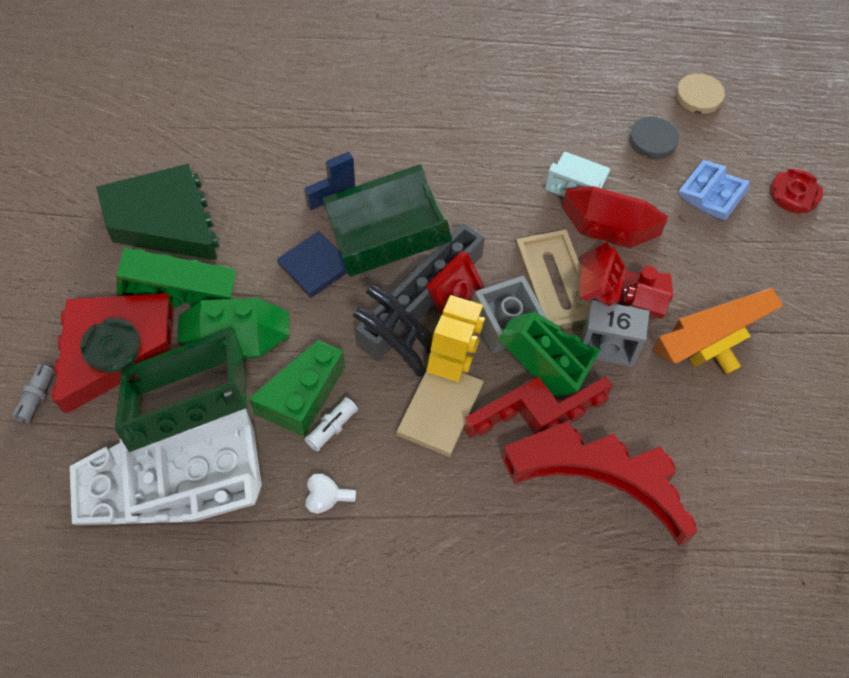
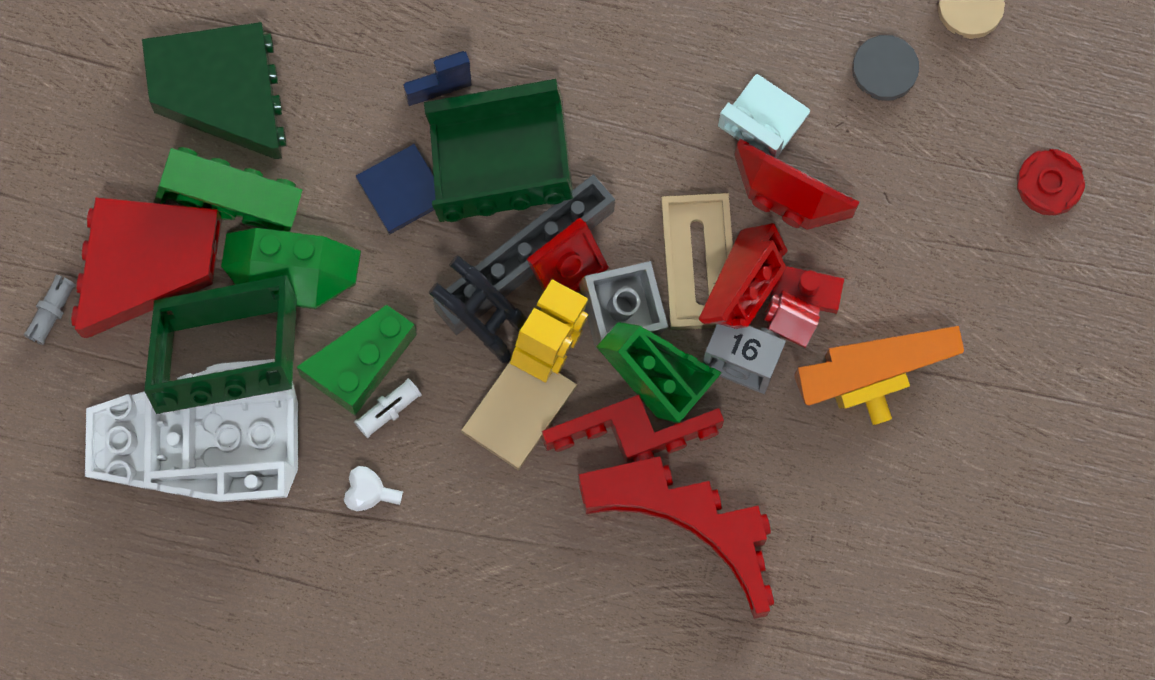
camera: 10 degrees right, 15 degrees up
(110, 345) = (144, 270): clear green tile -> none
(714, 190) = (940, 163): light blue slope -> none

